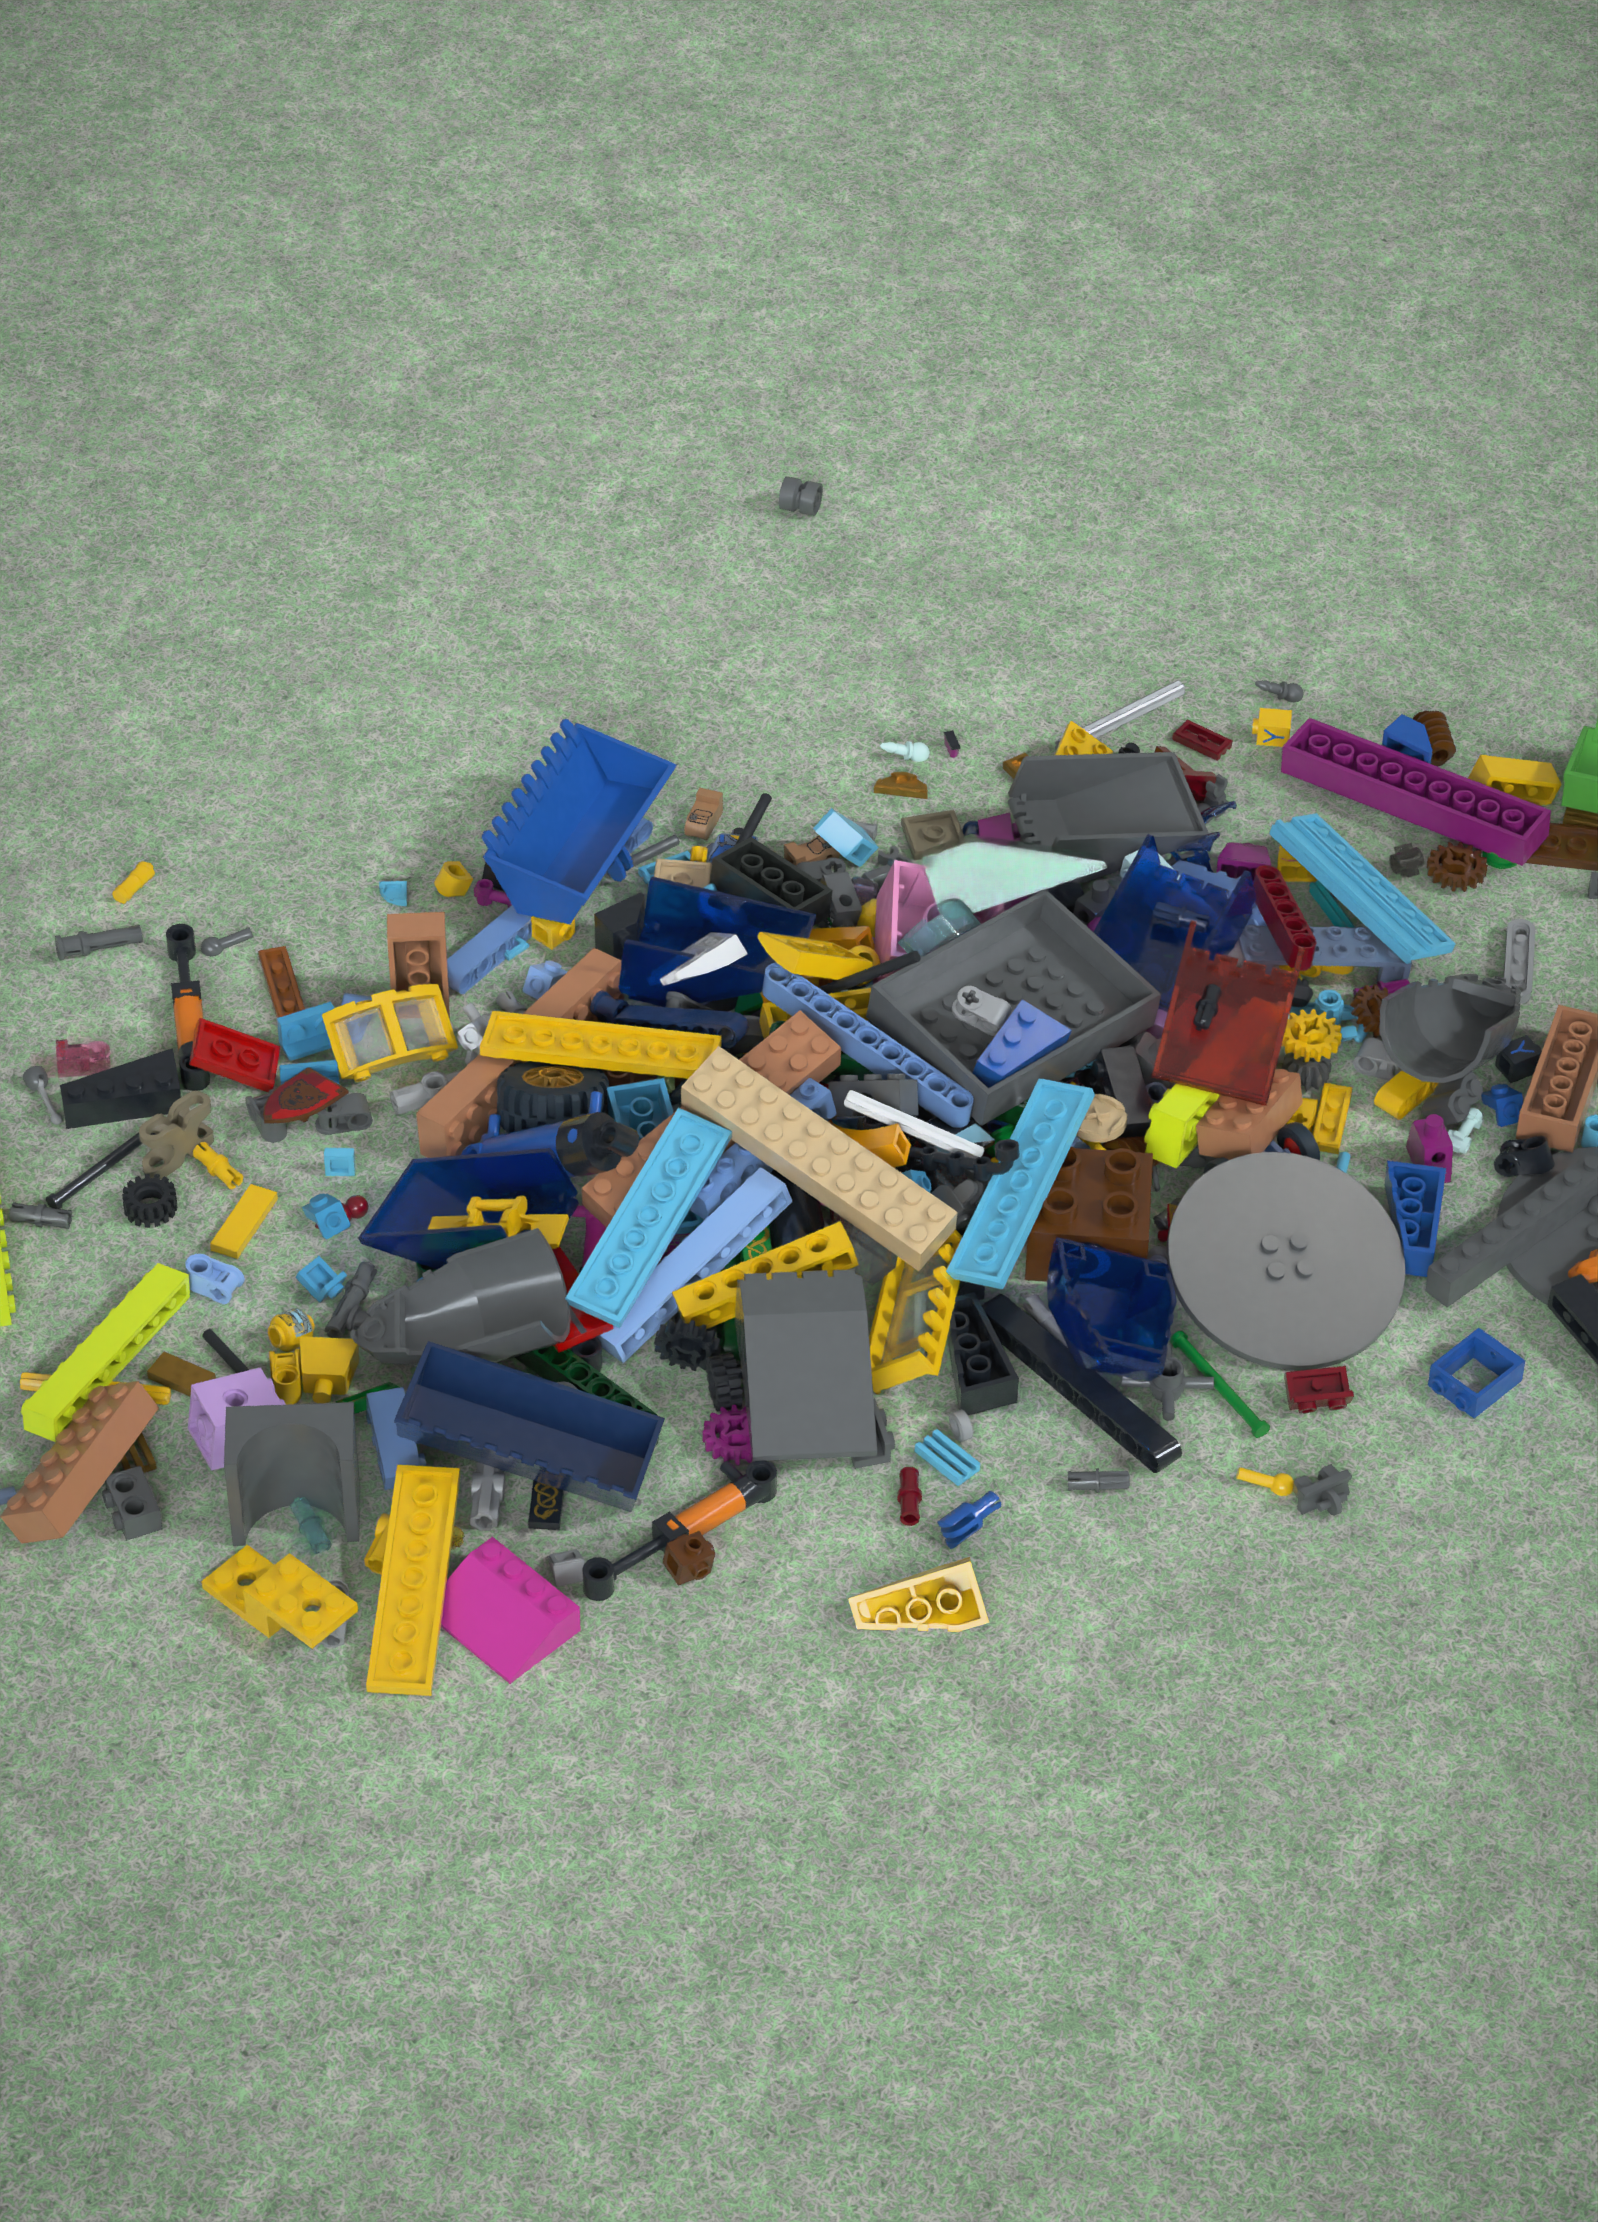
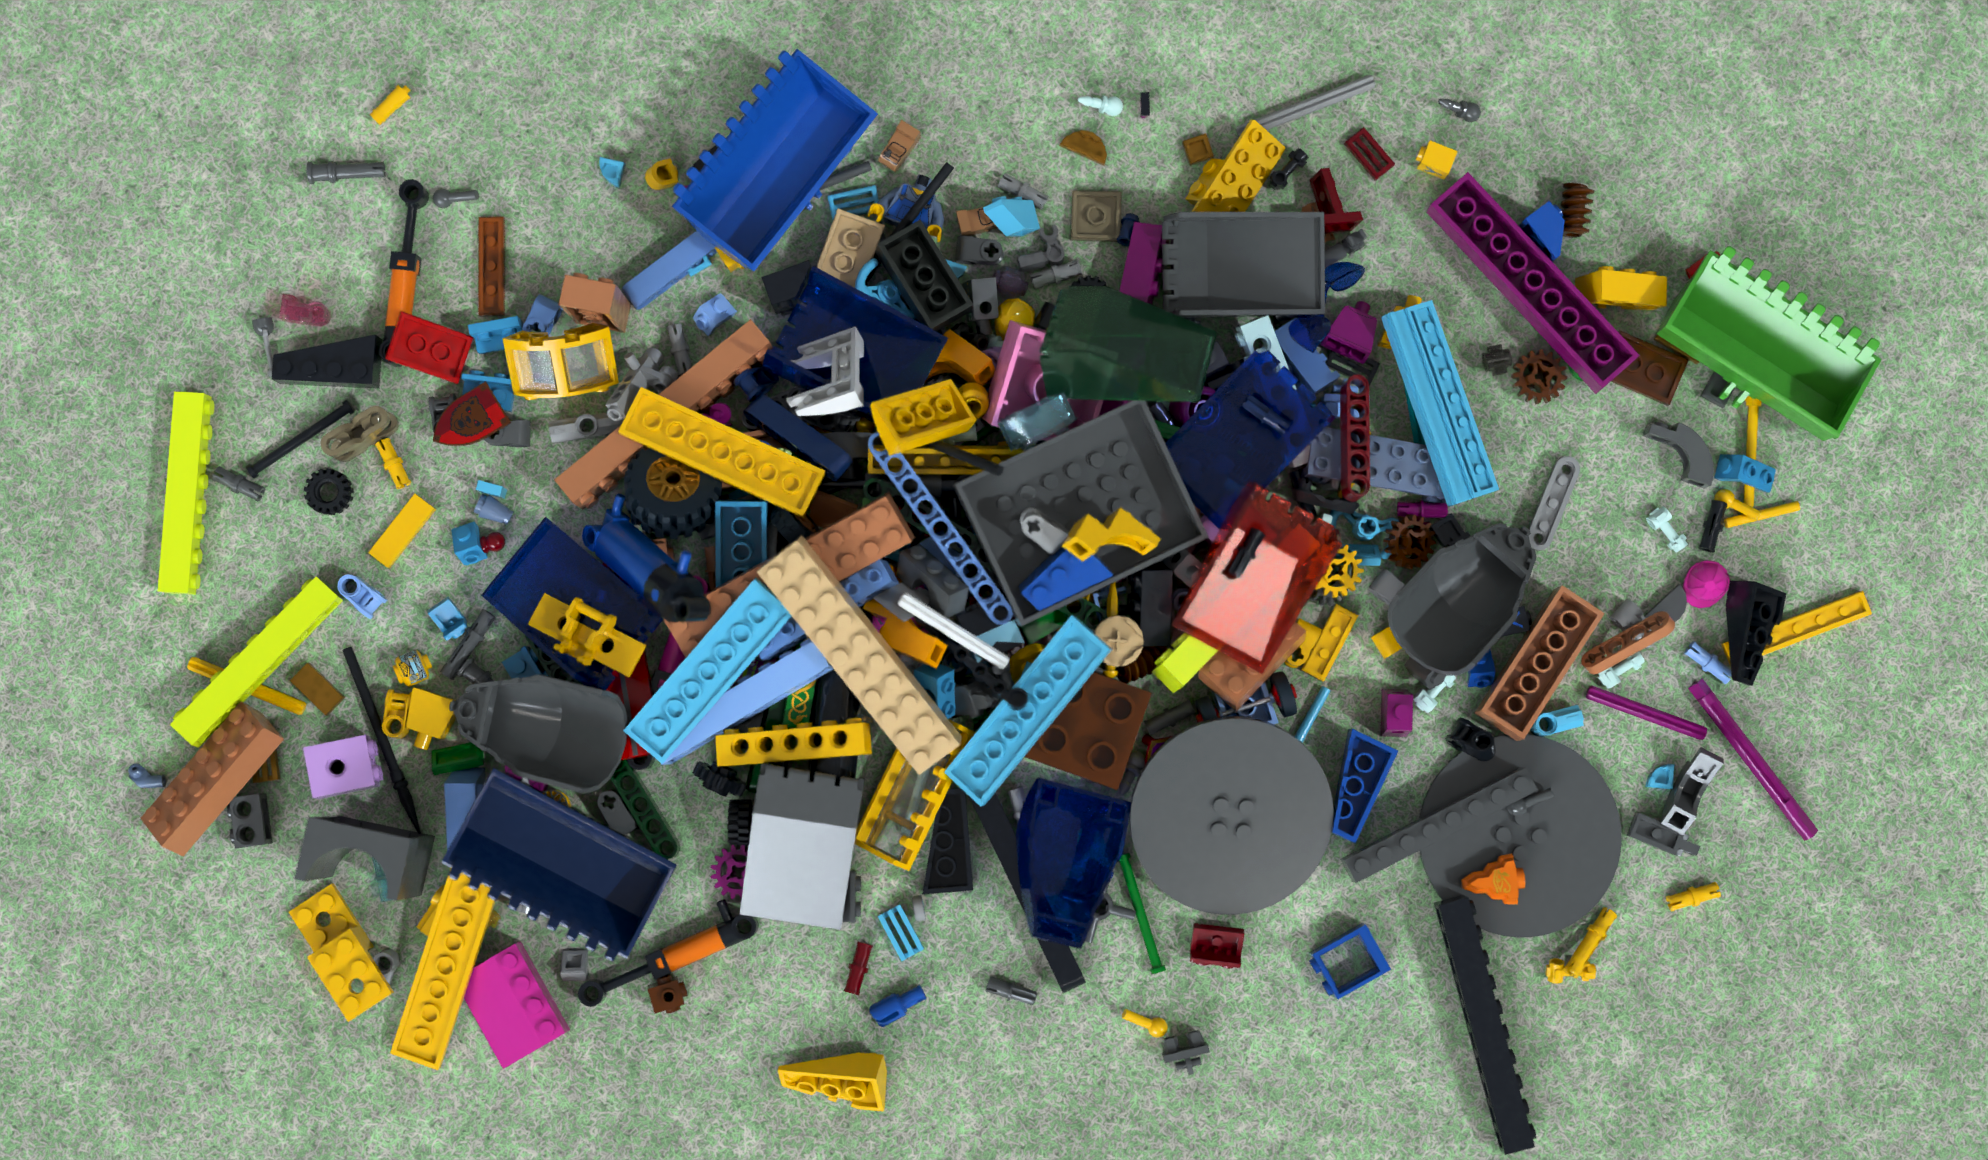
camera: 15 degrees right, 40 degrees up
(345, 1180) = (493, 510): none -> sand blue cone
(1060, 992) = (1118, 529): none -> yellow arch

